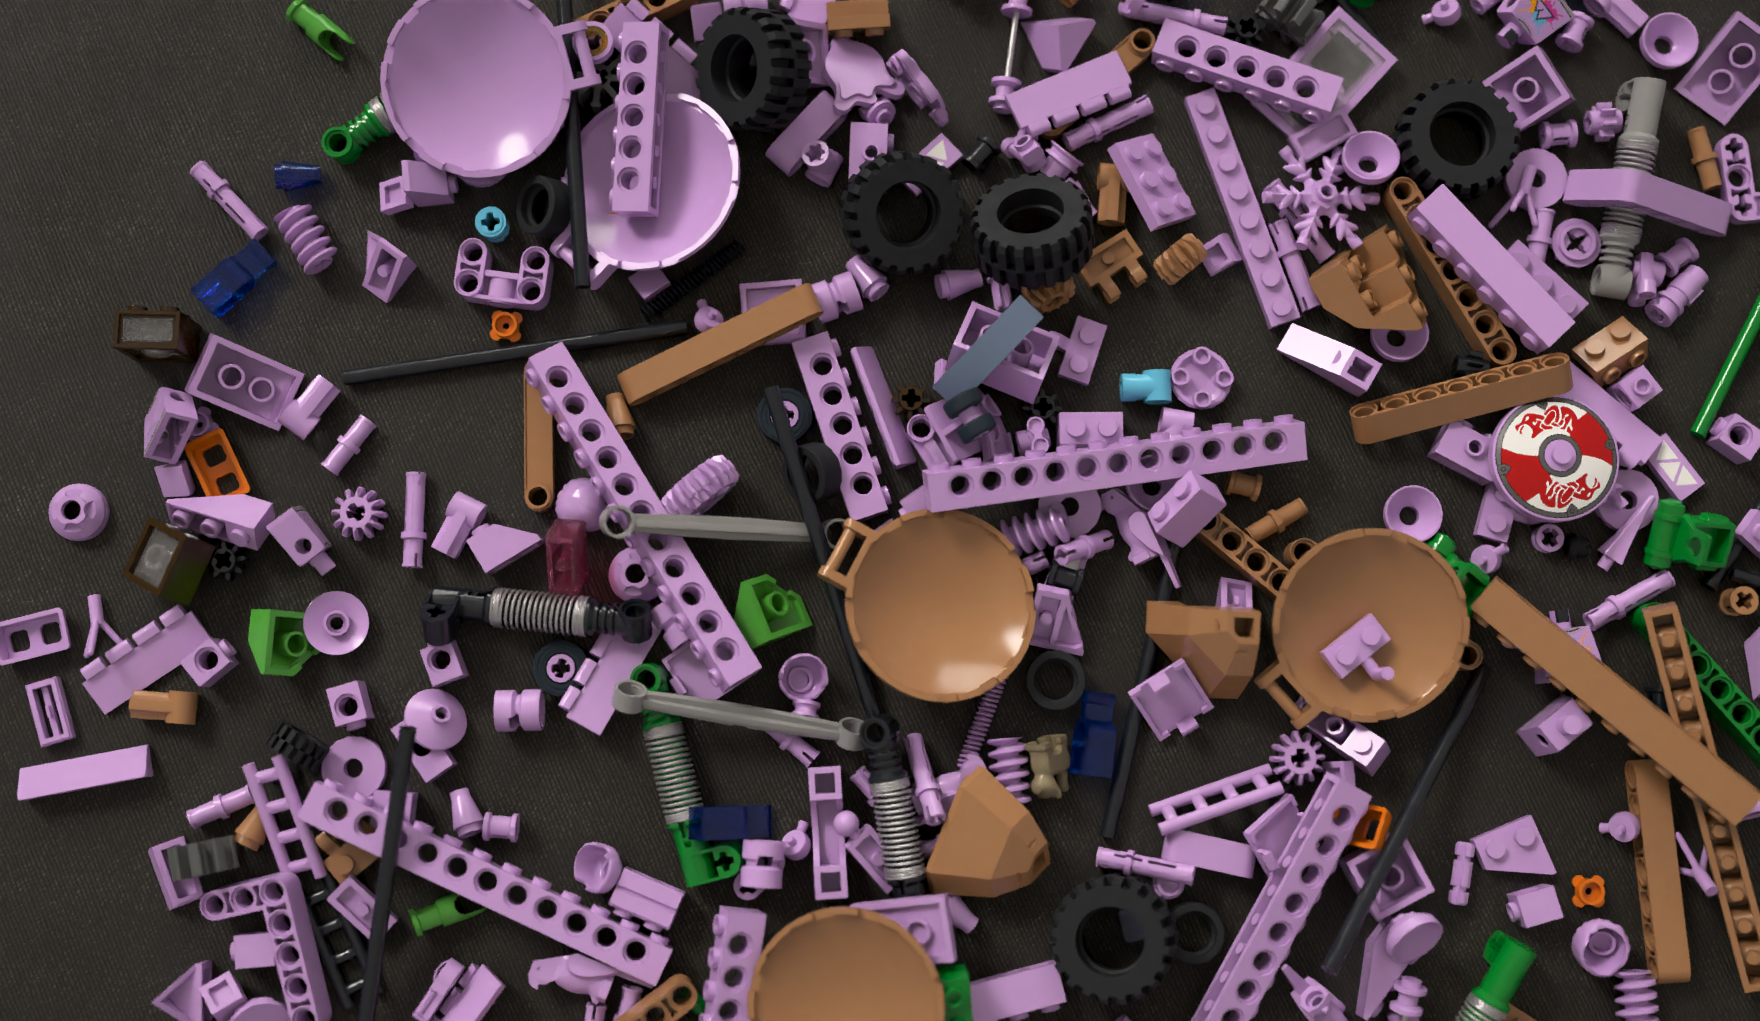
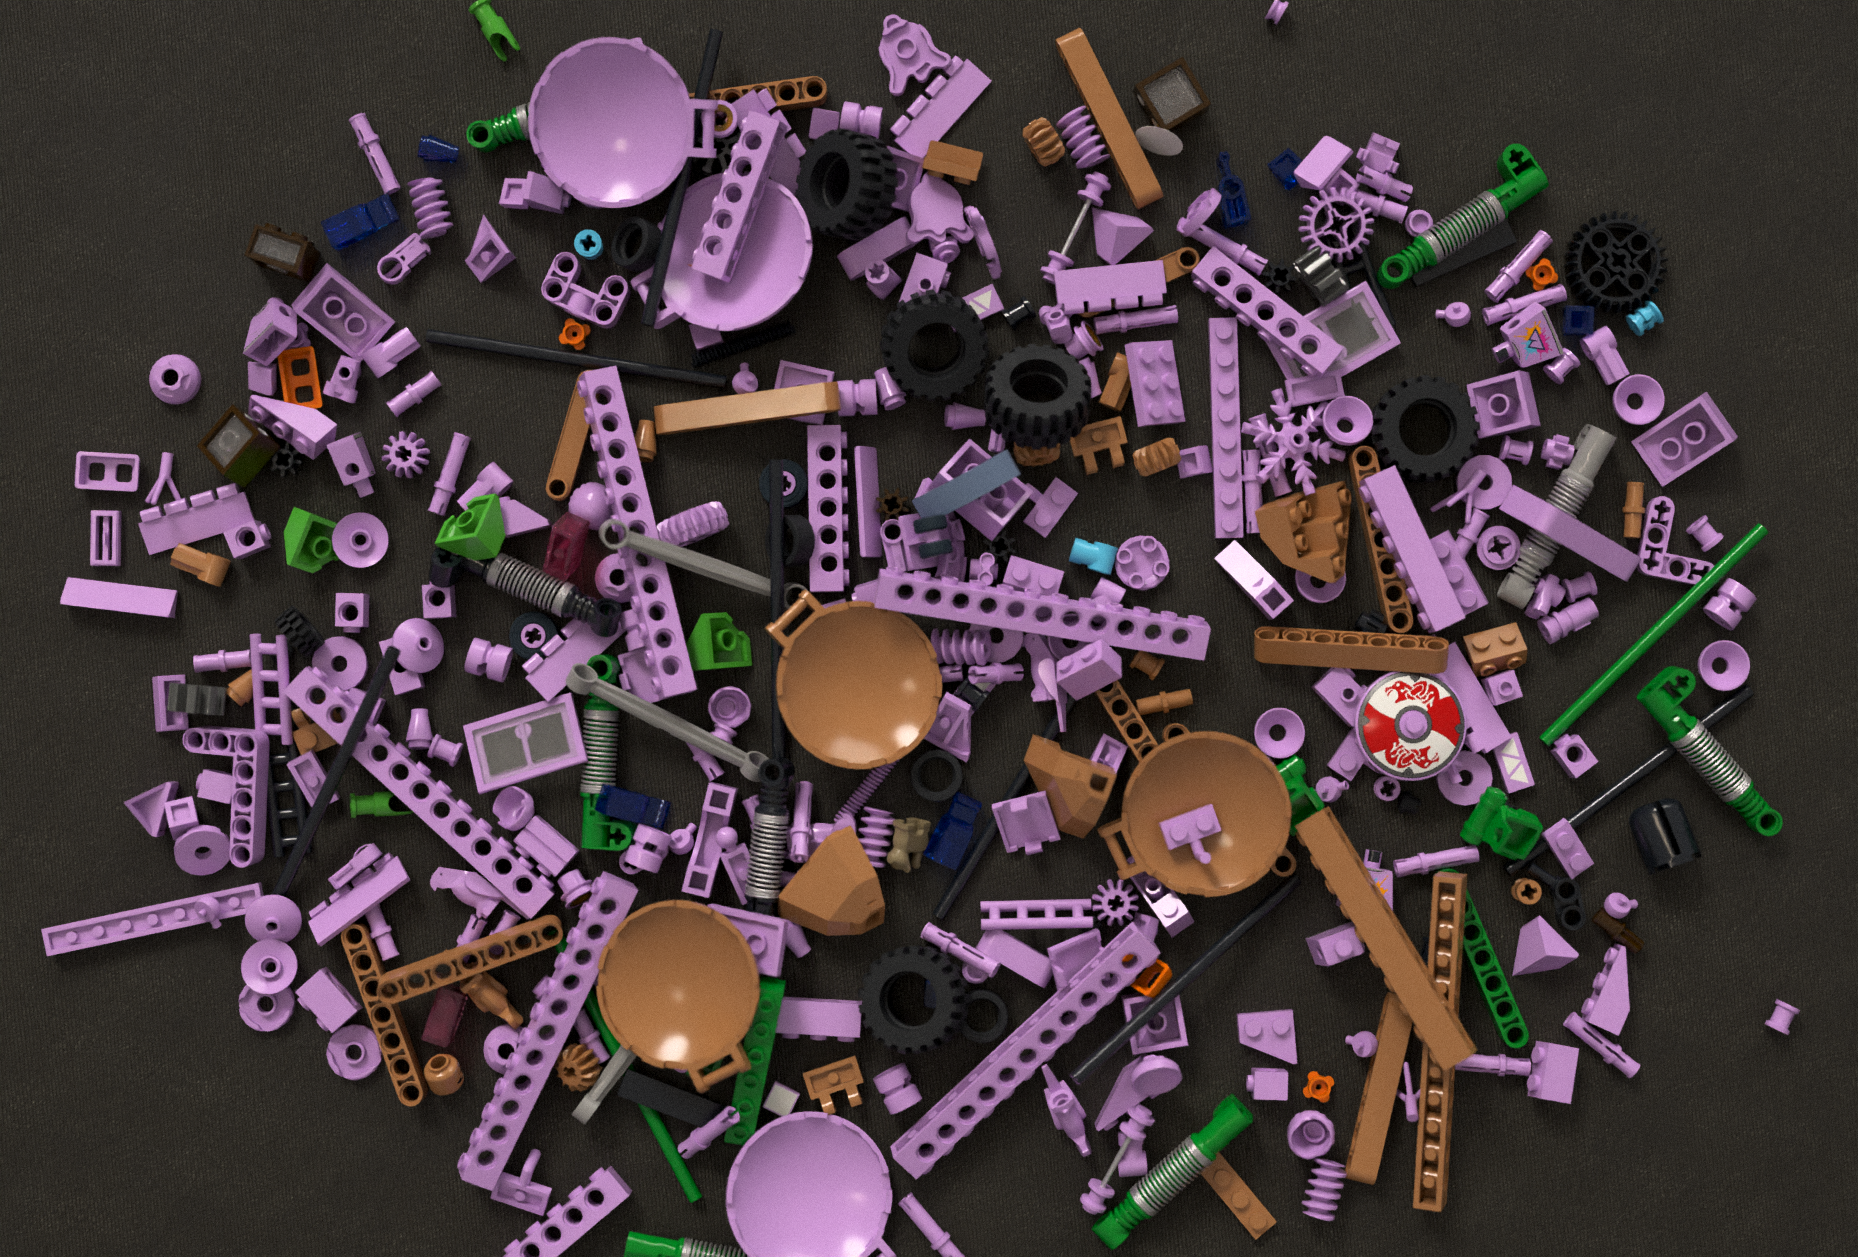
camera: 25 degrees right, 5 degrees up
(269, 460) = (342, 386): none -> lavender plate
(296, 297) = (407, 255): none -> lavender piece
(463, 570) = (476, 531): none -> bright green slope
(588, 790) = (525, 743): none -> clear door
(694, 936) = (575, 889): none -> lavender piece
(1461, 873) = (1219, 1039): lavender axle -> none
(1617, 546) = (1440, 814): lavender piece -> none

